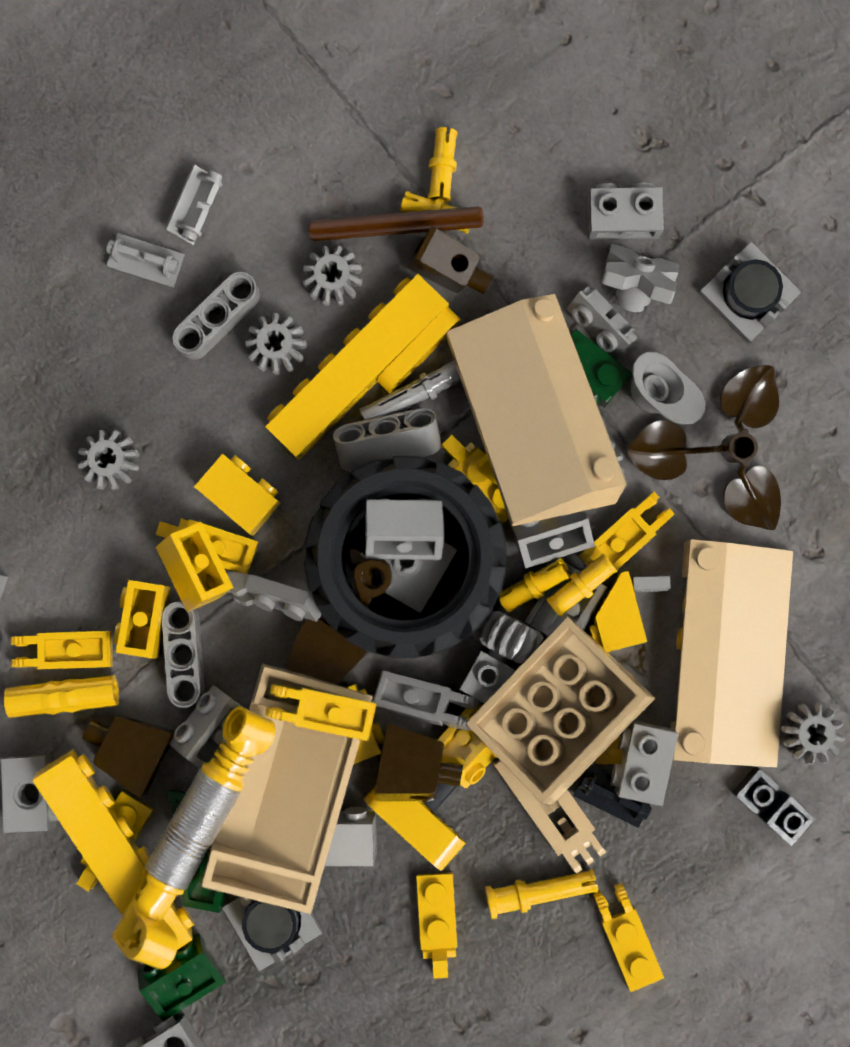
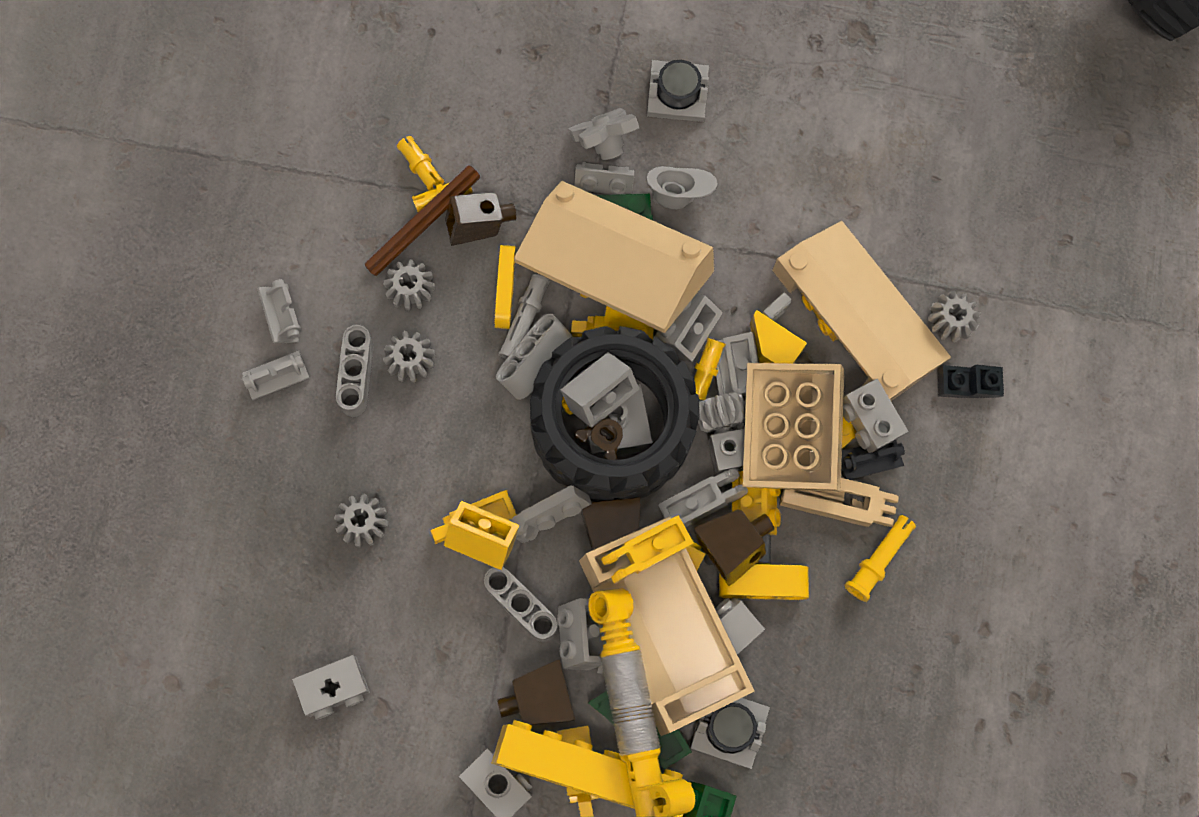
camera: 55 degrees left, 10 degrees down
(61, 696) = (461, 704): yellow axle -> none
(67, 650) = (439, 670): yellow hinge -> none
(141, 620) = (475, 602): yellow brick -> none
(238, 494) = (467, 469): yellow brick -> none
(356, 367) = (474, 330): yellow brick -> none
(437, 919) = (834, 634): yellow hinge -> none
(581, 585) = (736, 342): yellow pin -> none
(625, 212) = (560, 102): light grey brick -> none
(627, 535) = (735, 297): yellow hinge -> none
(629, 942) = (961, 541): yellow hinge -> none
(755, 495) = (737, 151): dark brown plant -> none

